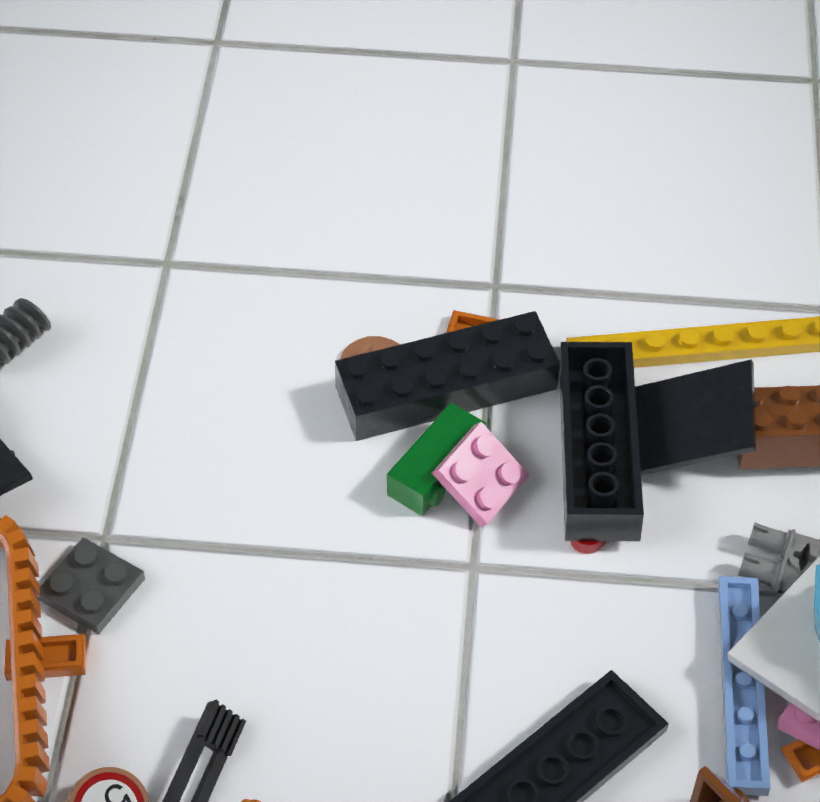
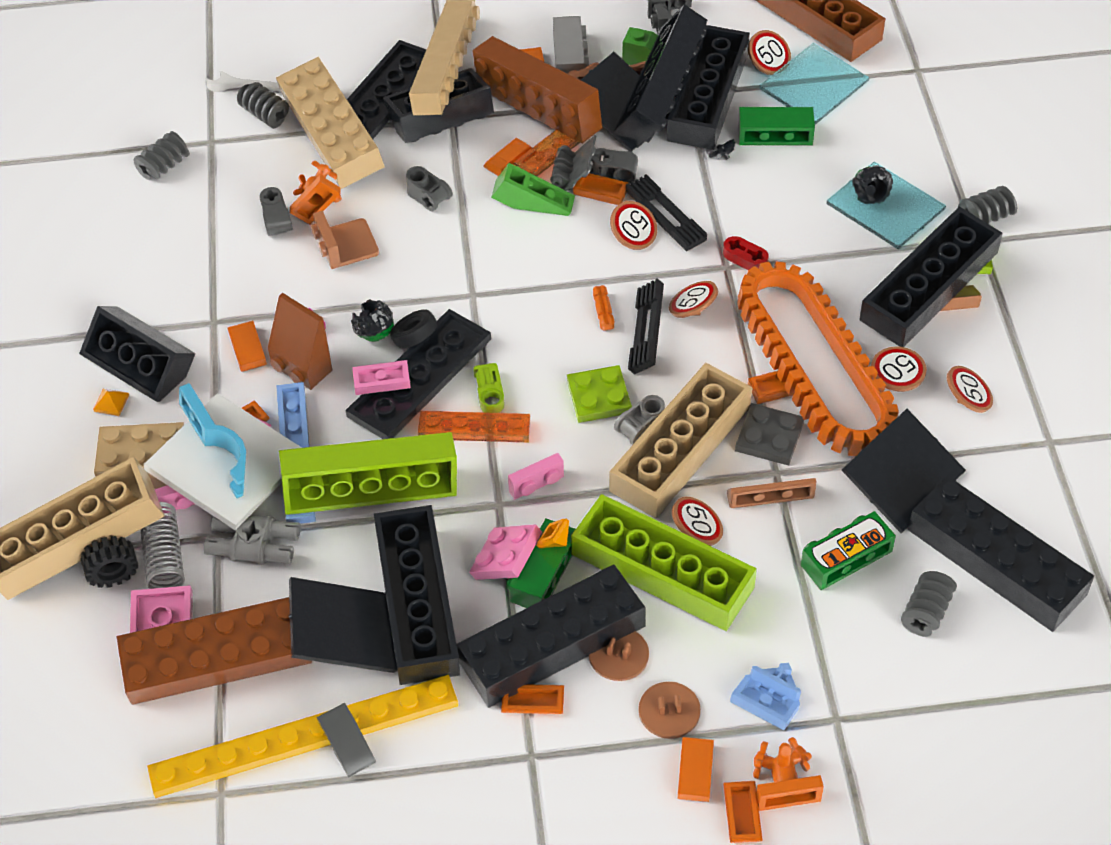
camera: 170 degrees right, 0 degrees up
(70, 408) = (847, 550): none -> brick
(125, 501) = (771, 493): none -> nougat slope
(211, 577) = (680, 440): none -> tan brick
(228, 289) = (769, 694): none -> light blue slope
(233, 473) = (697, 520): none -> piece
(245, 199) = (787, 787): none -> orange piece
(258, 625) = (639, 417): none -> light grey piece
(295, 425) = (664, 562): none -> lime brick
(297, 196) = (742, 812): none -> orange tile
(298, 694) = (598, 393): none -> lime plate
(330, 238) = (695, 769): none -> orange tile
(337, 300) = (669, 710): none -> nougat piece
(418, 574) = (536, 476): none -> bright pink plate
(420, 456) = (555, 534): none -> light orange slope
(453, 736) = (489, 386): none -> lime piece
(486, 678) = (476, 425): none -> clear orange plate
(612, 748) = (381, 377): none -> bright pink plate
(646, 586) = (368, 473): none -> lime brick
(696, 311) = (346, 739): none -> dark grey slope

